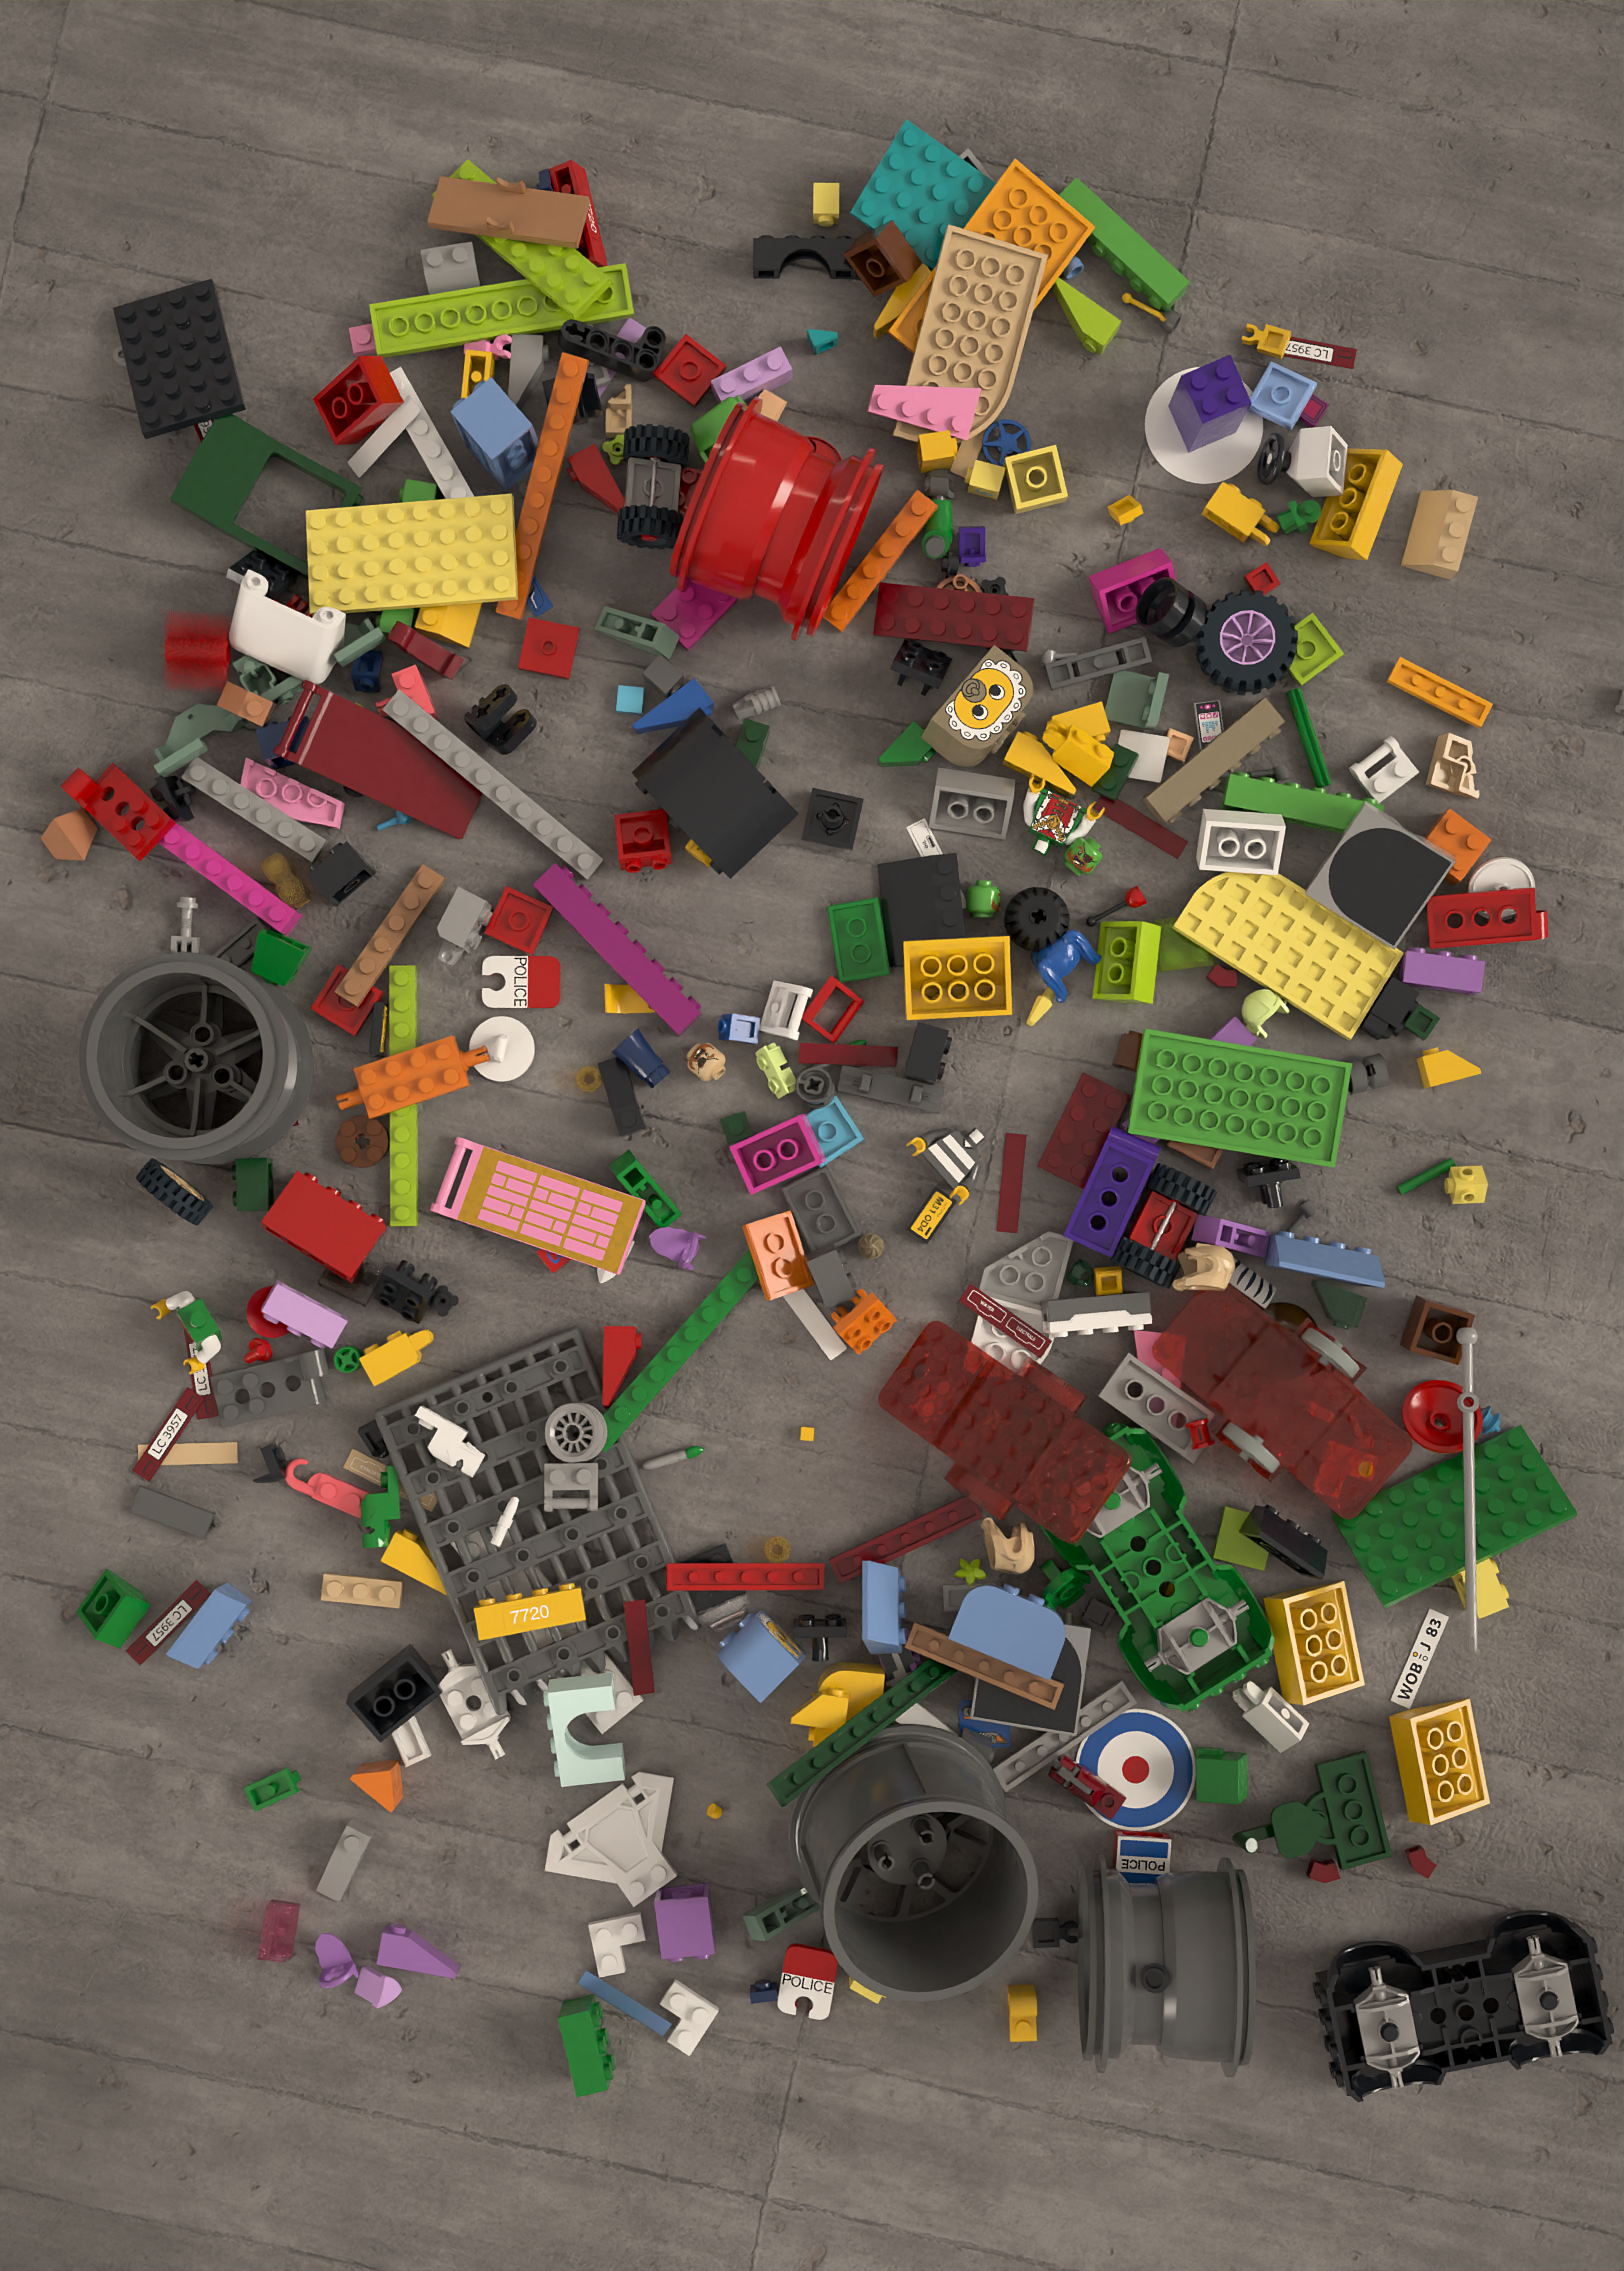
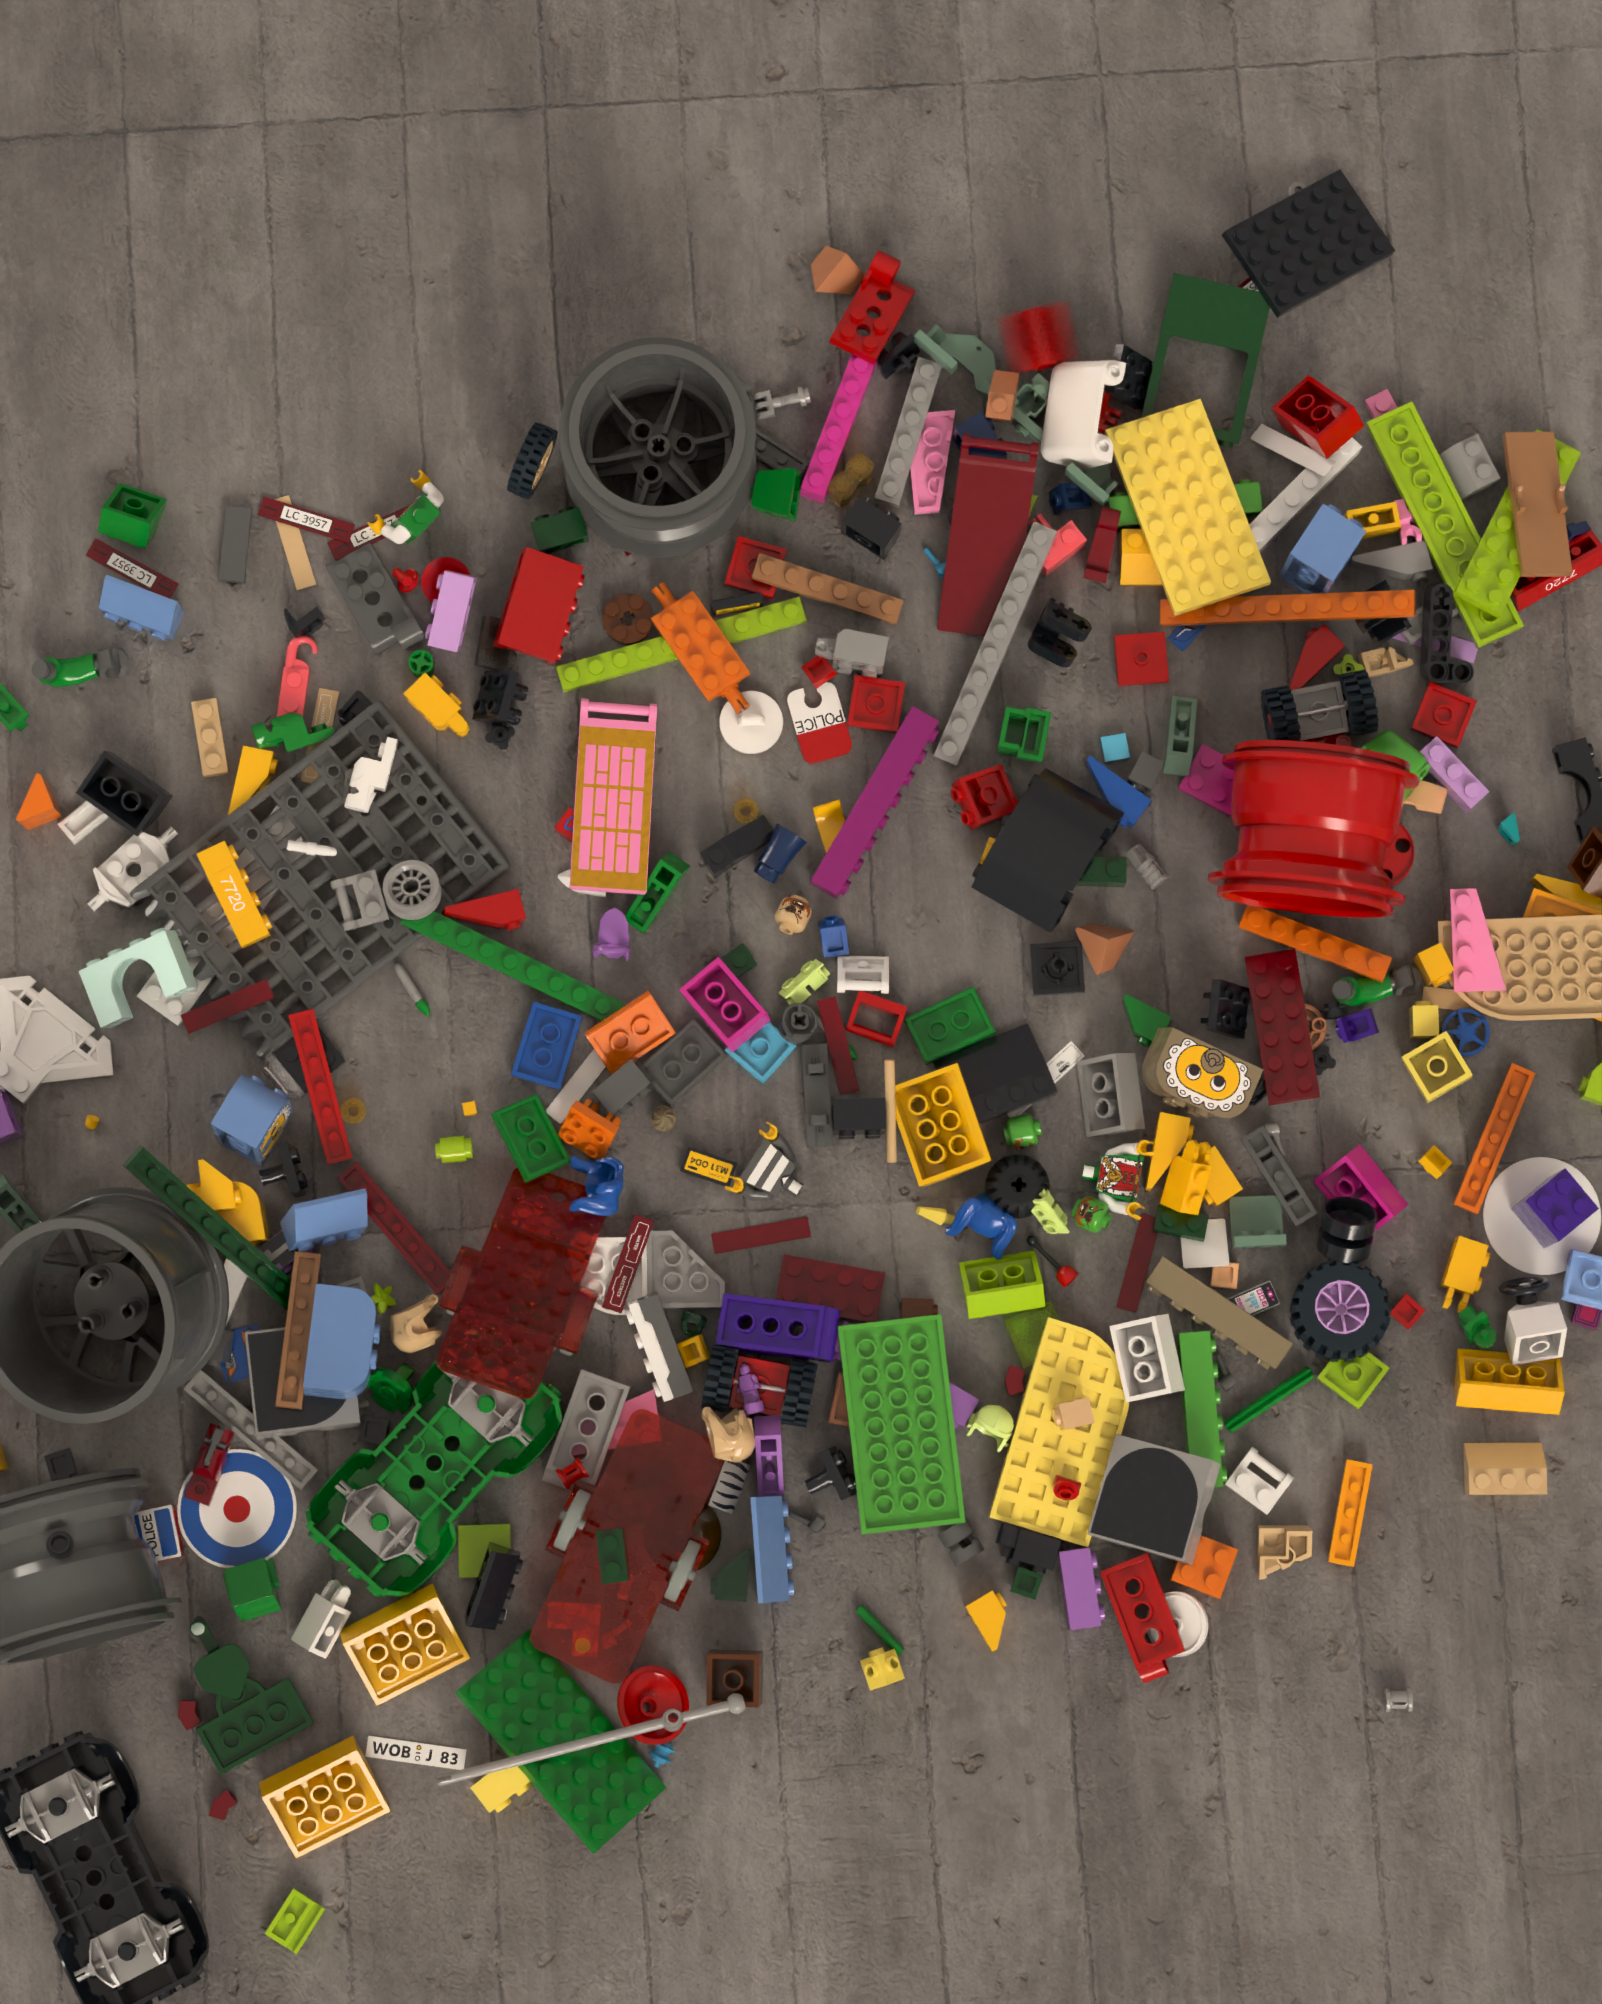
camera: 70 degrees right, 5 degrees down
(254, 1715) = (72, 671): none -> piece
(470, 967) = (819, 671): none -> red plate
(591, 783) = (1024, 733): none -> green plate
(767, 1340) = (546, 1046): none -> blue plate
(822, 767) = (1103, 945): none -> nougat slope
(844, 1460) = (454, 1149): none -> lime brick
(854, 1381) = (530, 1138): none -> green tile
(922, 1324) = (602, 1186): none -> blue hair
(930, 1020) = (890, 1105): none -> tan piece
(1073, 895) = (1050, 1214): none -> yellowish green hinge
(1118, 447) = (1494, 1138): none -> orange plate
(1162, 1236) = (748, 1387): none -> medium lavender piece
(1275, 928) = (1073, 1413): none -> tan brick
(1294, 1416) = (613, 1555): none -> dark green brick
(1344, 956) = (1066, 1488): none -> red plate
(1550, 1820) = (295, 1921): none -> lime plate

